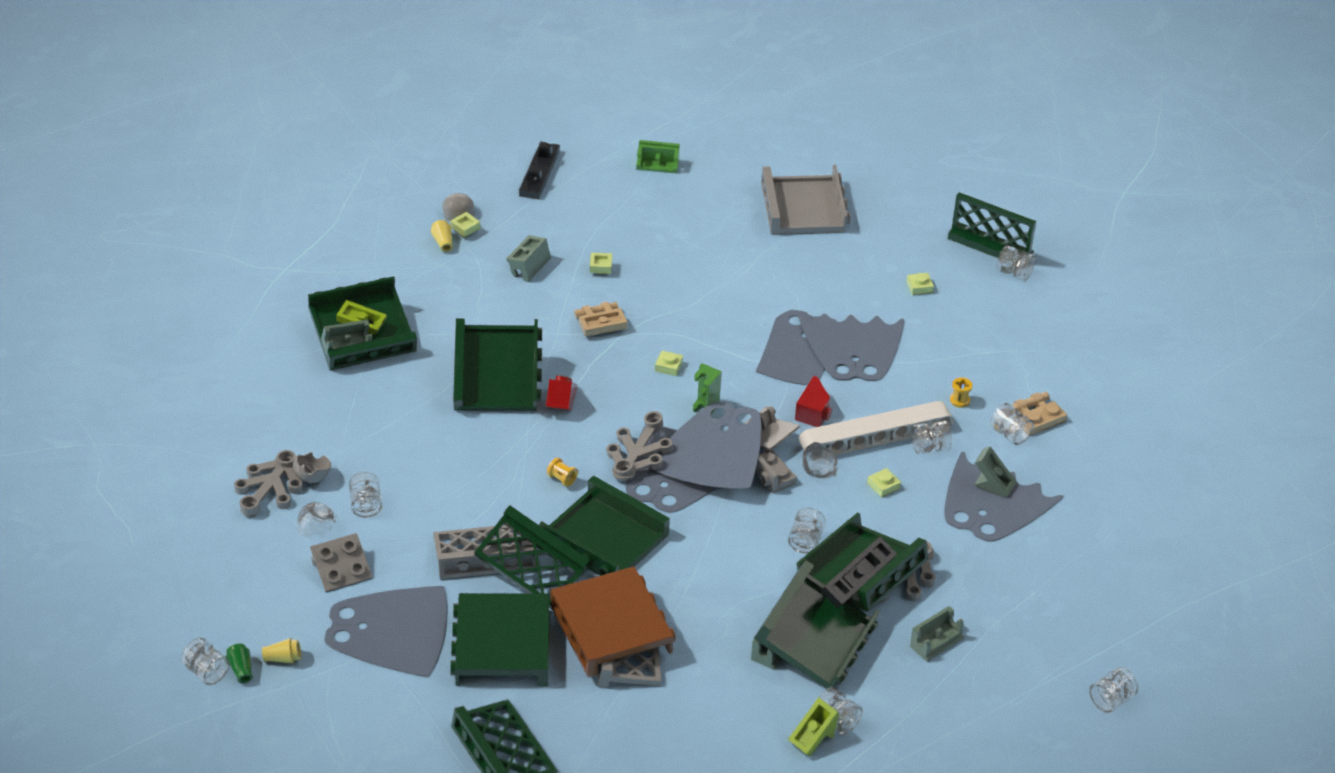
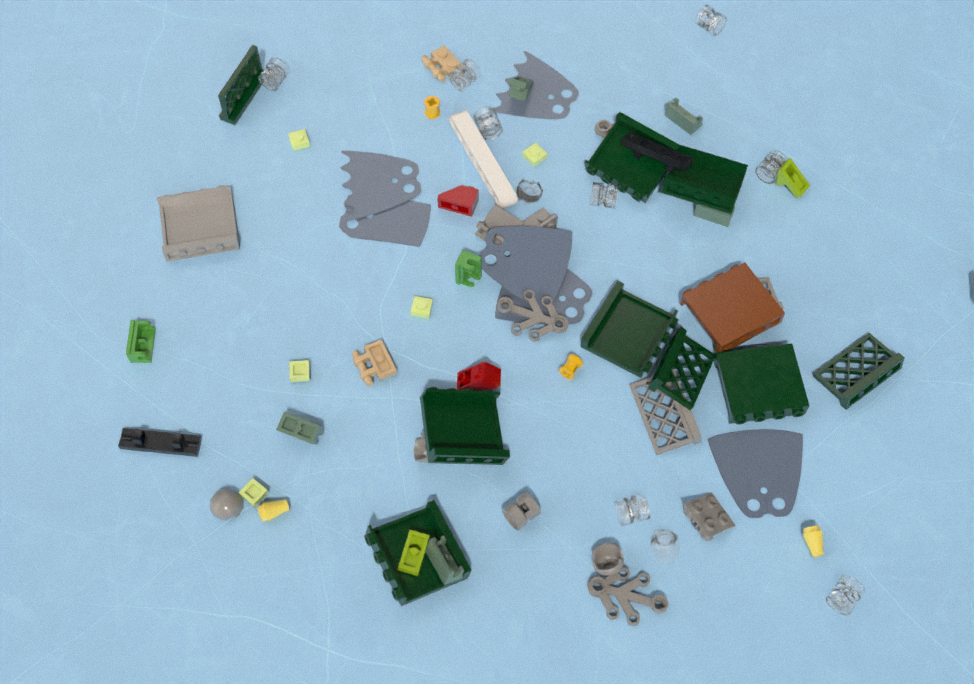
camera: 95 degrees left, 20 degrees up
(240, 662) = (834, 570): green cone -> none
(388, 407) = (516, 516): none -> light grey wheel

